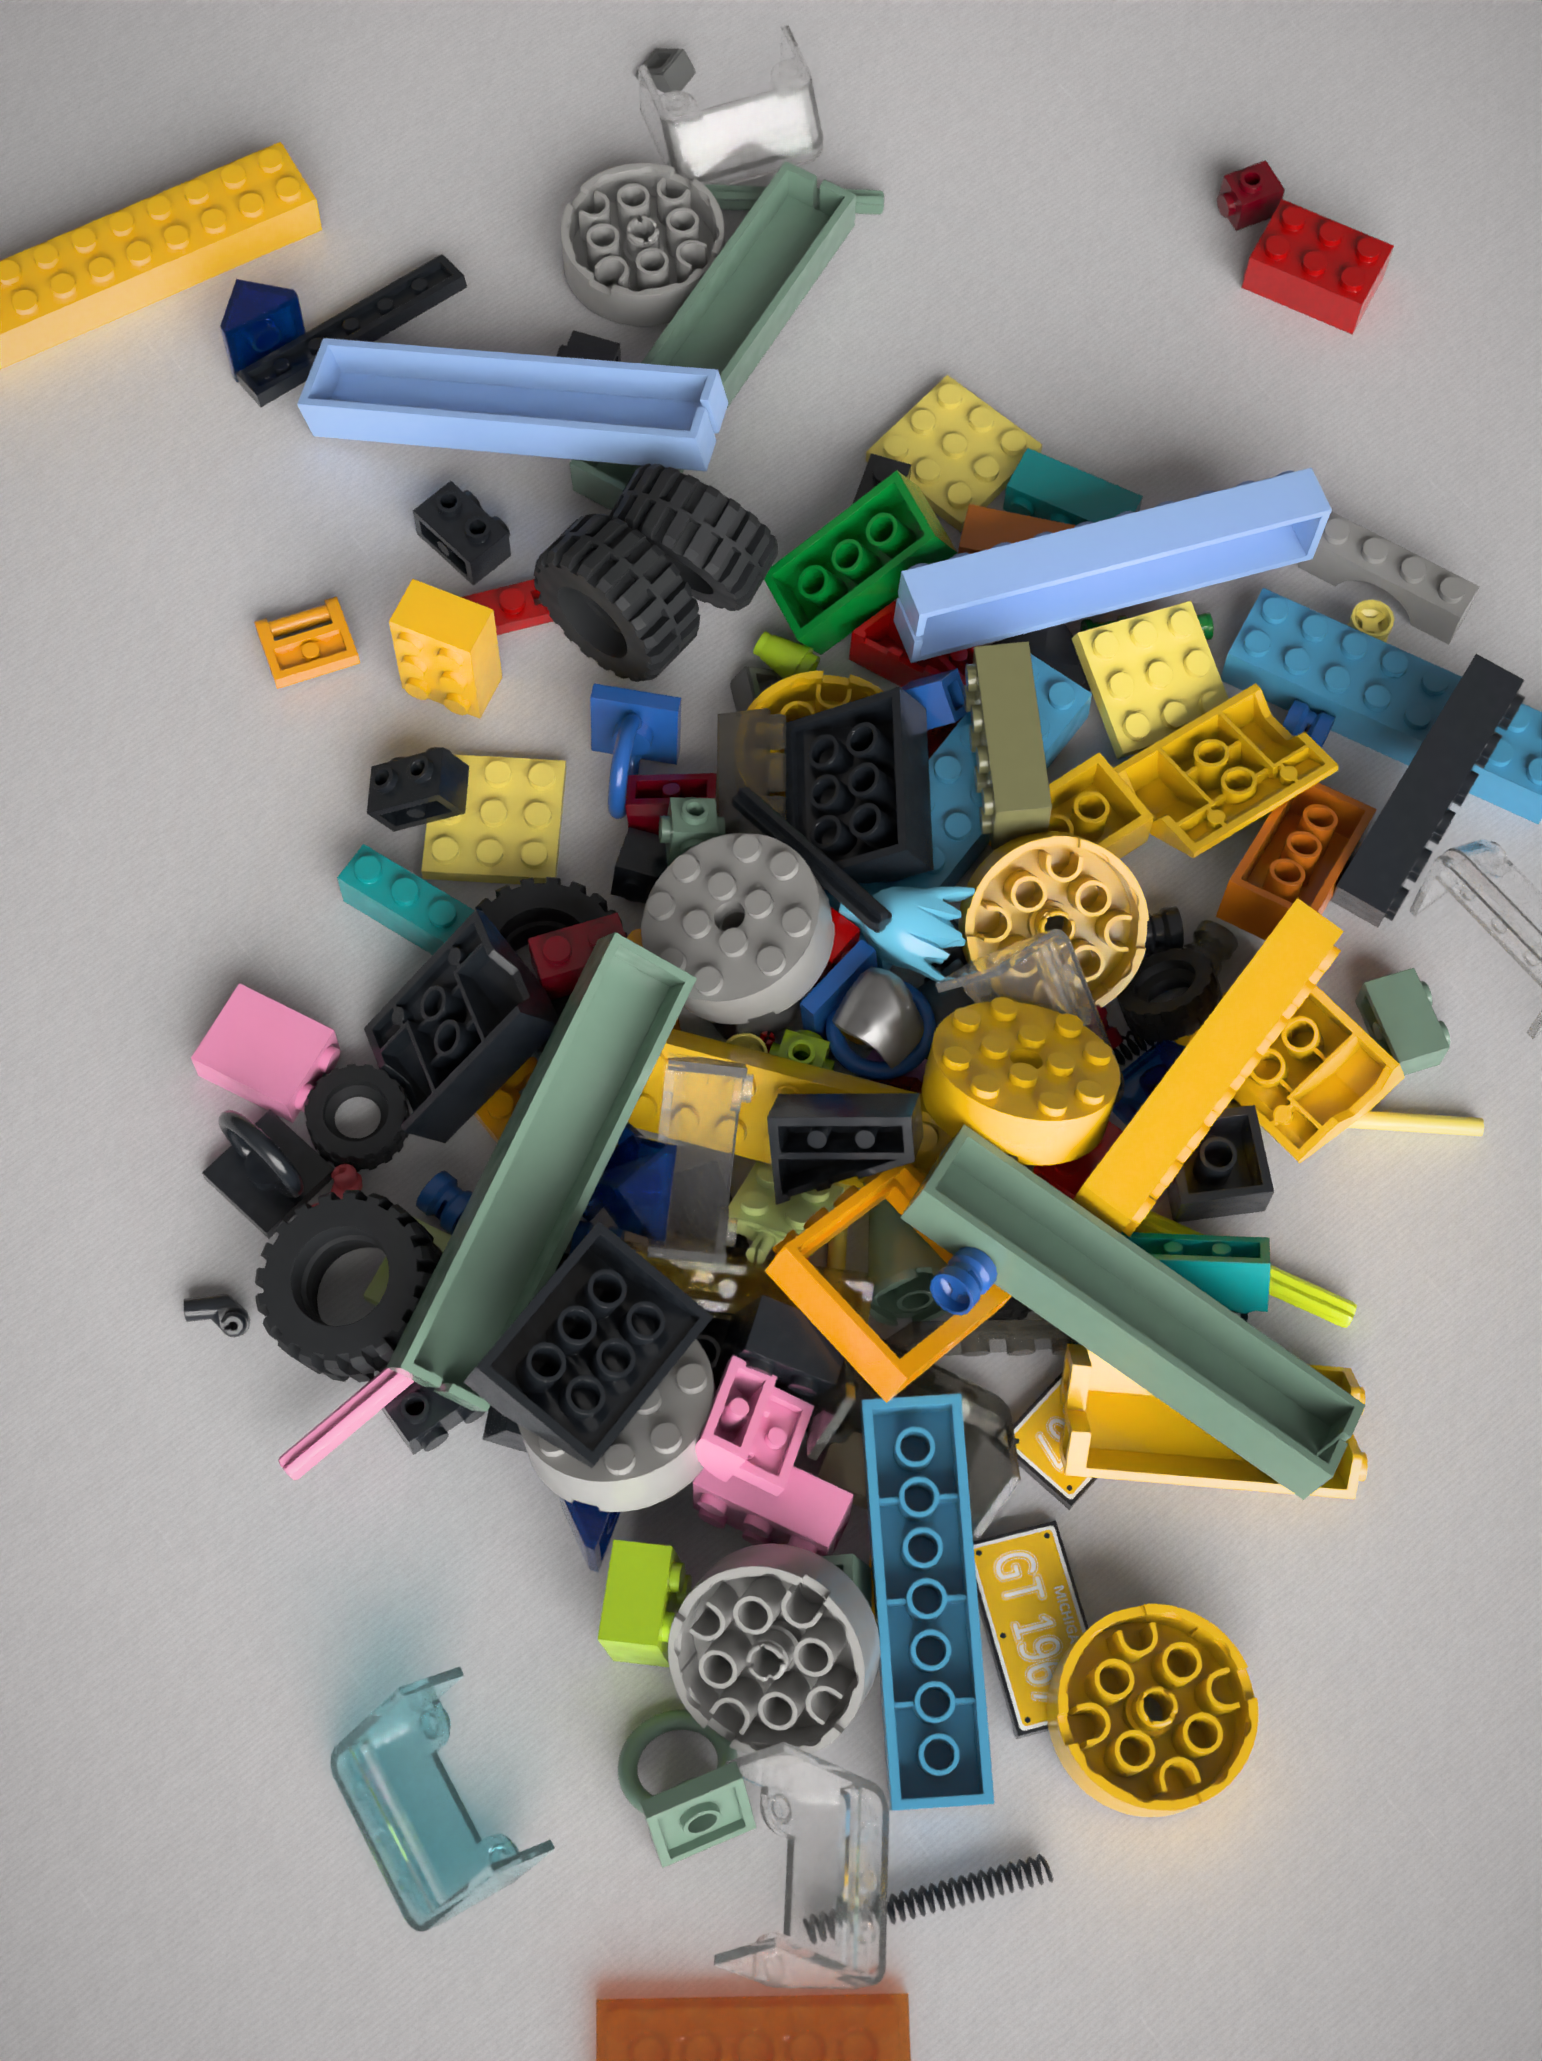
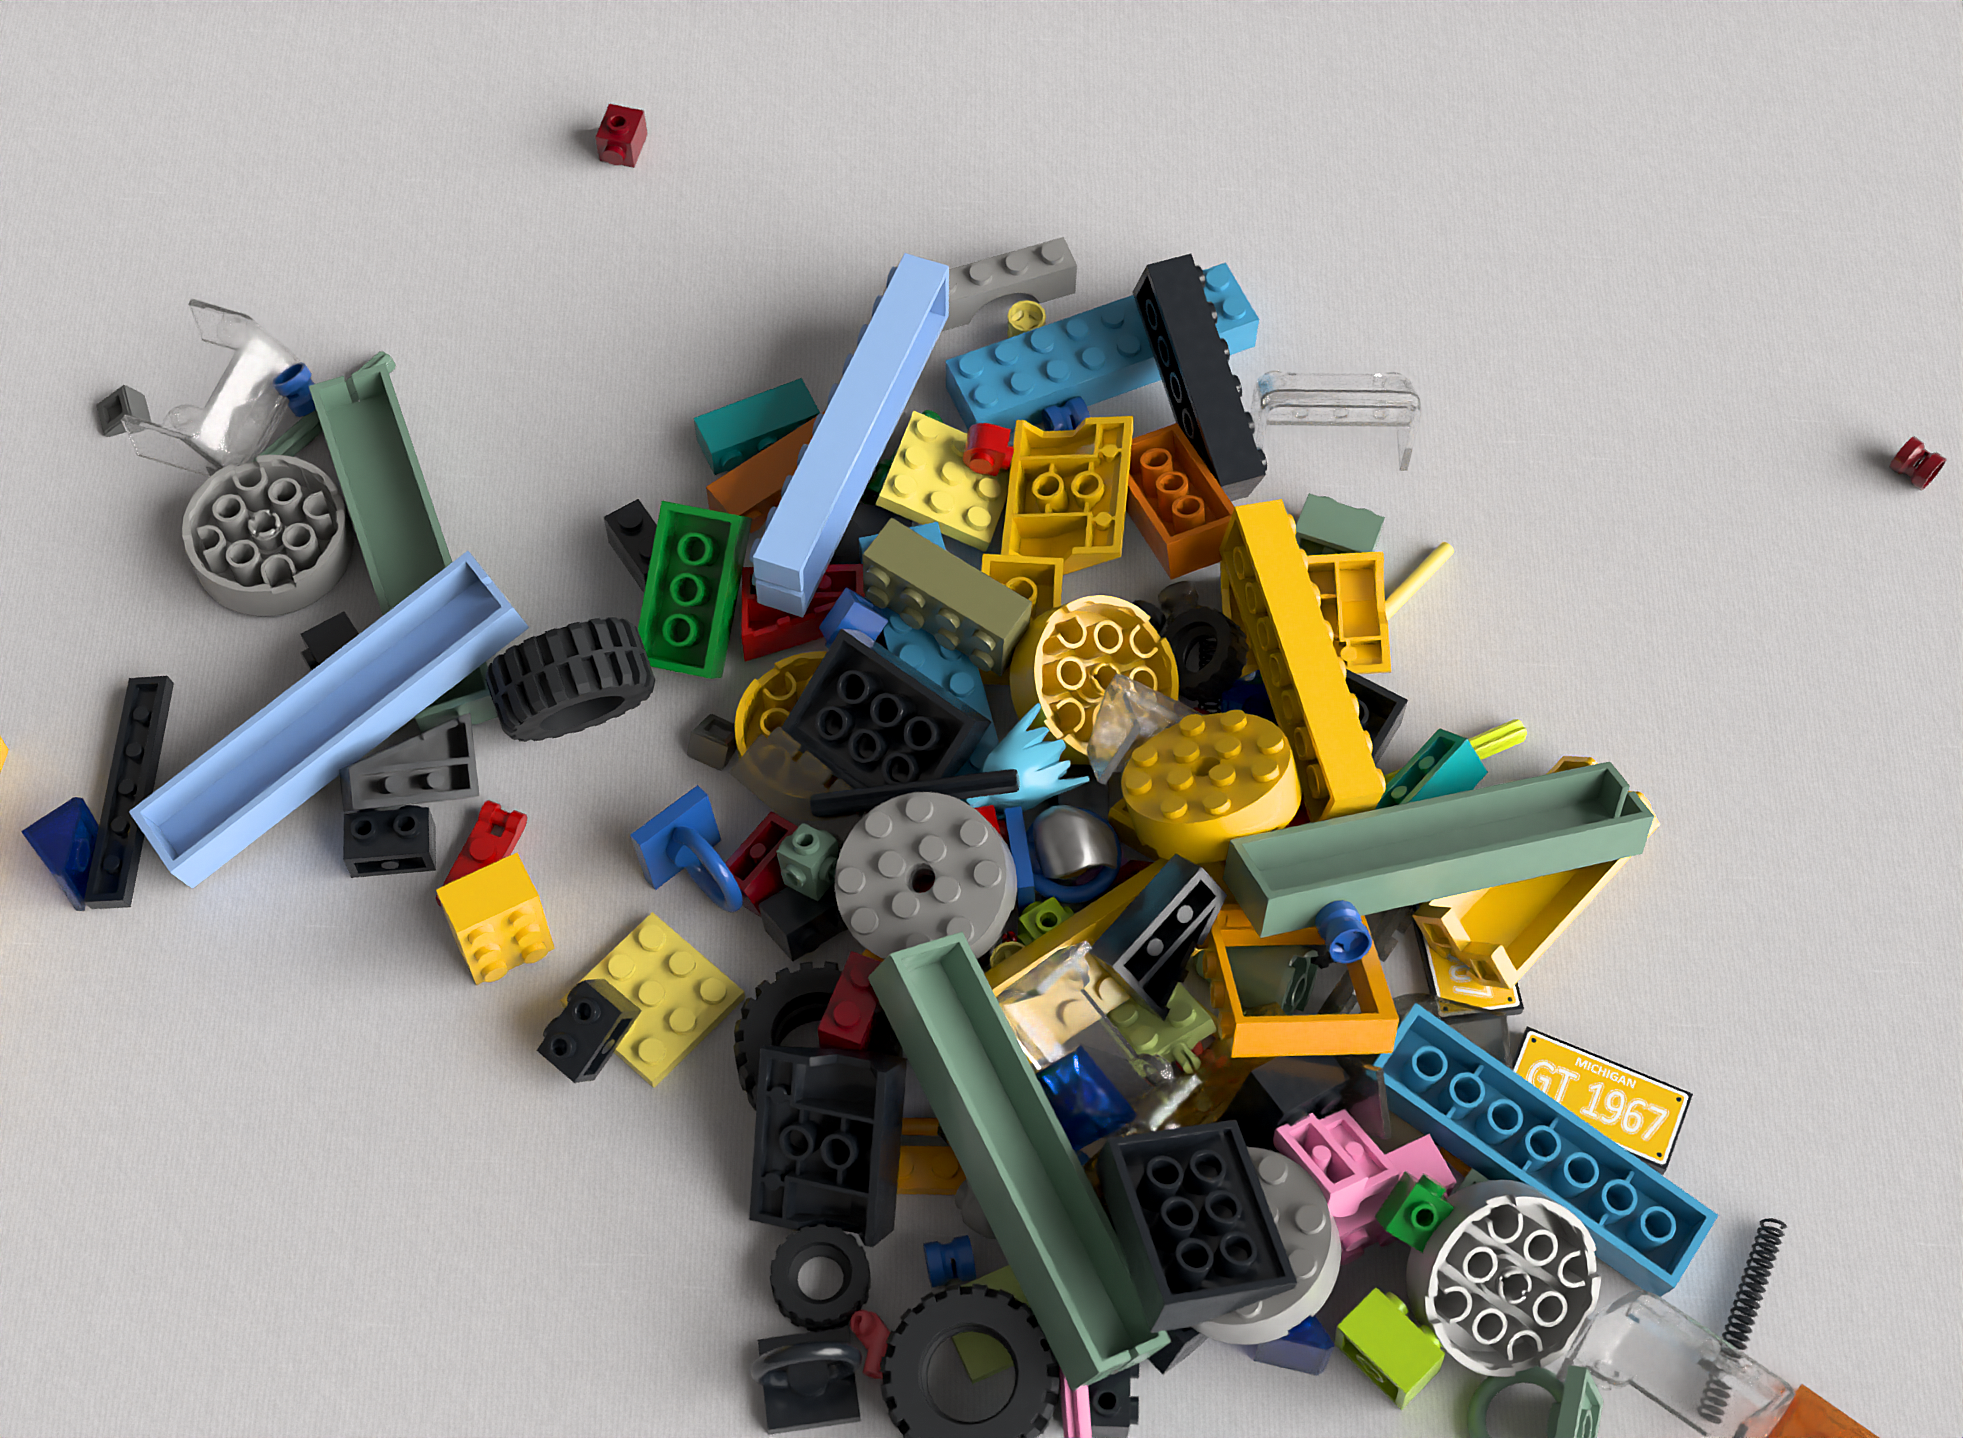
camera: 50 degrees left, 5 degrees down
(266, 1052) = (710, 1306): bright pink brick -> none
(311, 651) = (386, 1028): light orange plate -> none
(401, 900) = (676, 1110): teal brick -> none
(523, 496) = (415, 771): none -> black wedge
(617, 597) = (570, 767): black tyre -> none
(761, 1526) = (1414, 1209): none -> green brick
(785, 655) = (710, 699): lime cone -> none
(792, 151) = (295, 384): none -> blue wheel
(956, 449) = (639, 459): light yellow plate -> none
(1101, 1718) = (1718, 1065): yellow brick -> none
(1203, 682) = (987, 449): none -> red plate
(1317, 266) = (719, 140): red brick -> none

